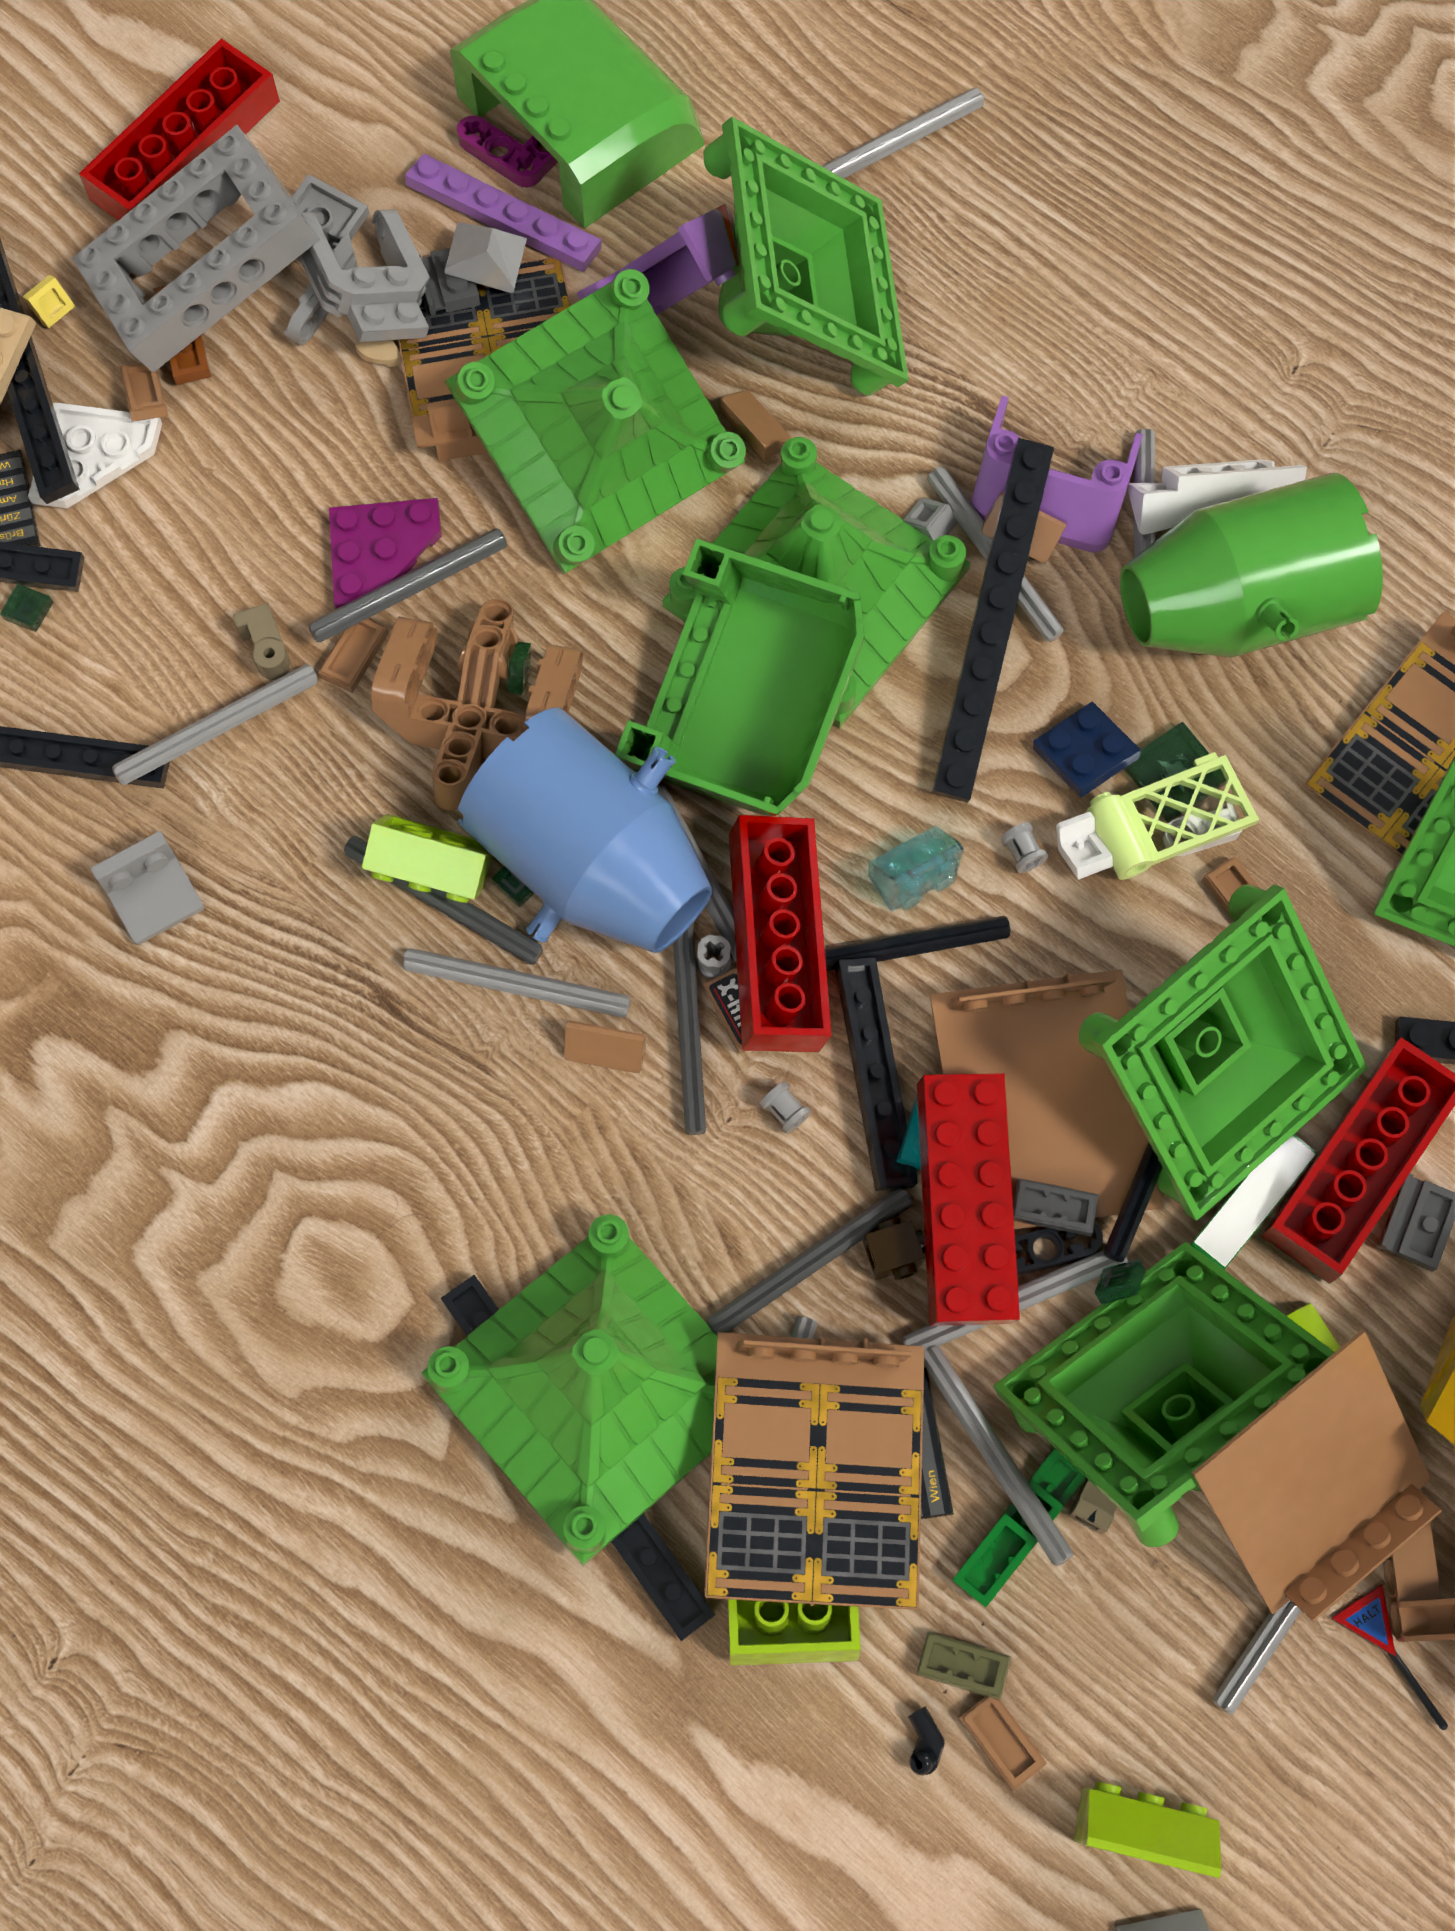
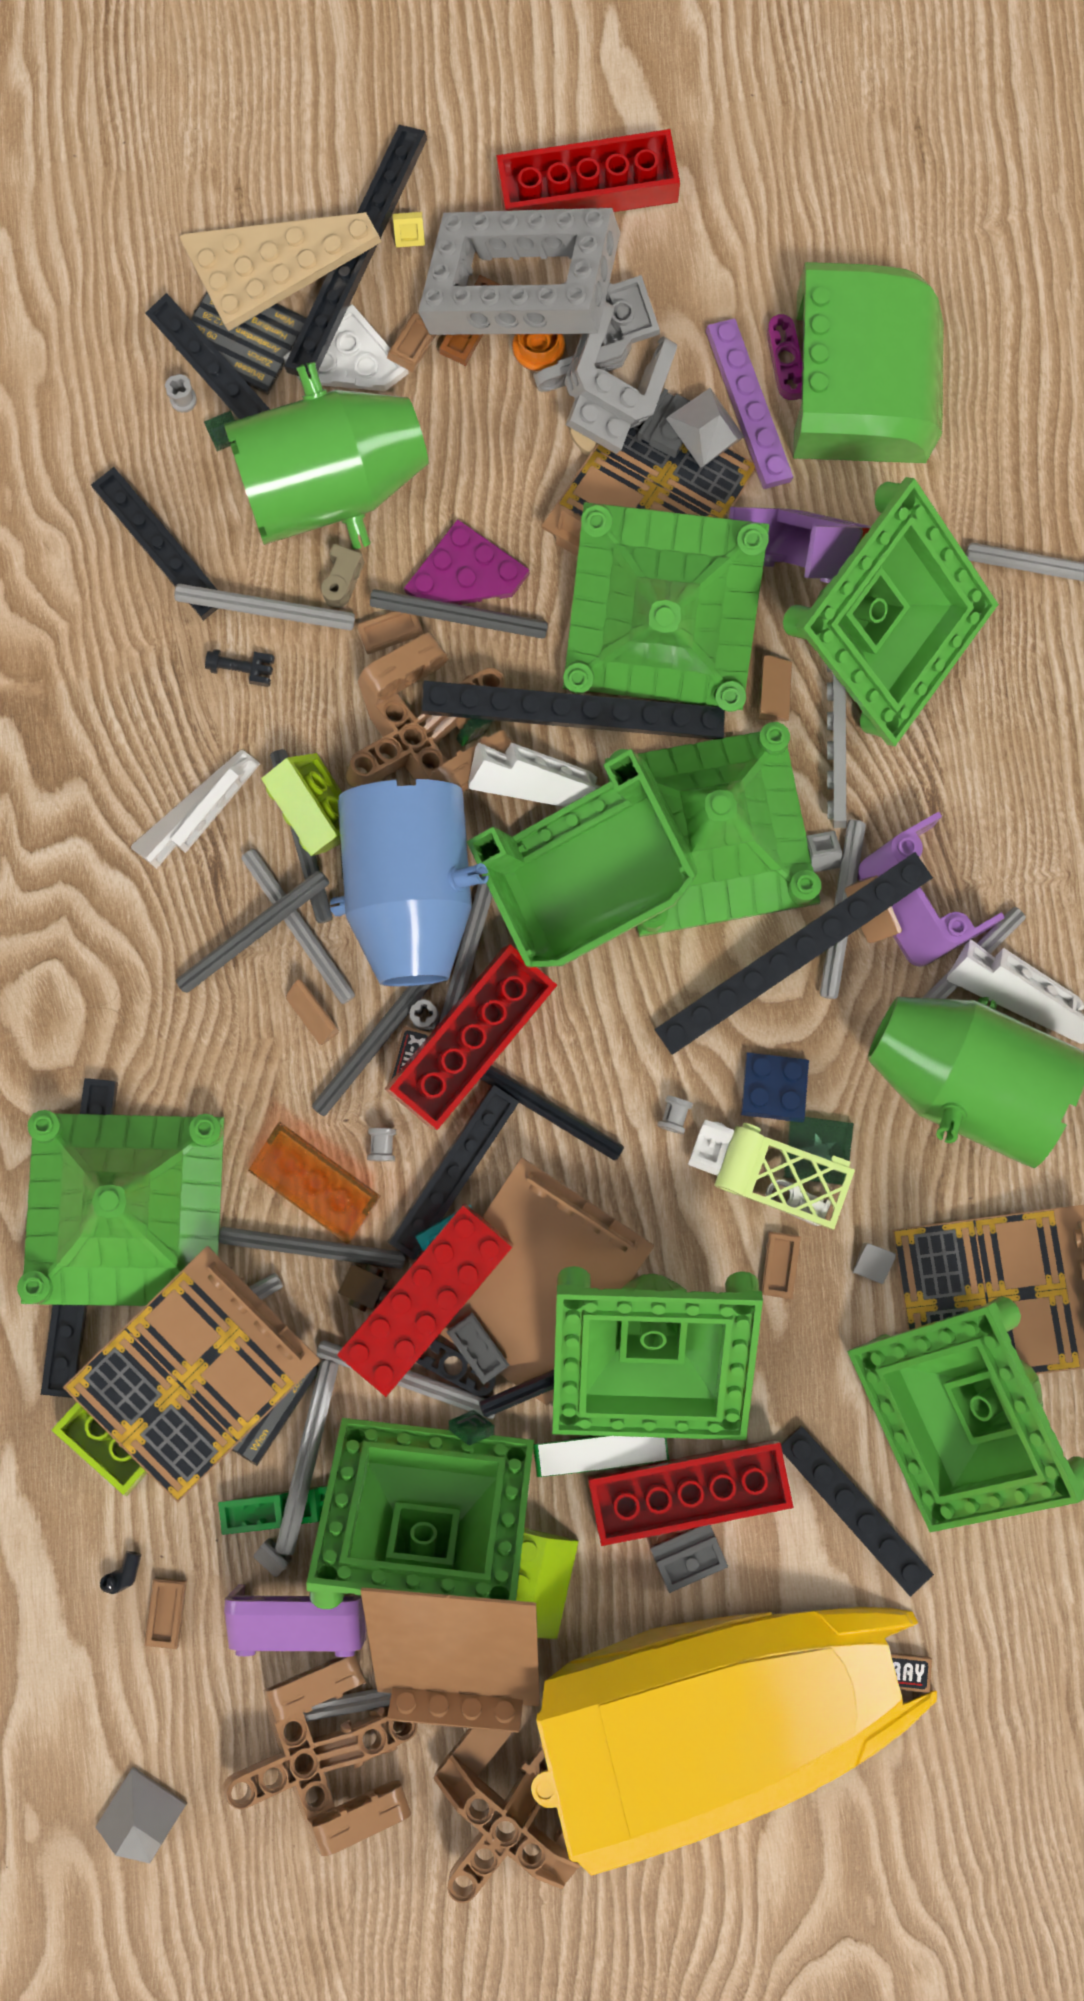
camera: 45 degrees right, 10 degrees up
(148, 888) = (138, 679): light grey bracket -> none
(157, 542) = (326, 458): none -> bright green piece
(211, 813) = (255, 668): none -> black hinge
(267, 309) = (538, 350): none -> orange piece
(317, 967) = (196, 812): none -> white wedge
(479, 1021) = (252, 931): none -> dark grey axle
(593, 579) = (572, 710): none -> black plate
(611, 662) = (529, 776): none -> white wedge
(756, 1198) = (314, 1183): none -> clear orange slope
(857, 420) = (837, 751): none -> light grey plate
(916, 868) = (594, 1069): clear light blue slope -> none
(964, 1666) = (181, 1554): olive plate -> none
(1052, 1587) = (270, 1559): none -> light grey slope
(1138, 1614) = (292, 1624): none -> medium lavender windscreen
(1149, 1830) = (191, 1740): lime slope -> none
(1317, 822) = (874, 1263): none -> light grey slope
(1353, 1784) = (328, 1825): none -> medium nougat piece
(1371, 1621) = (433, 1746): piece -> none

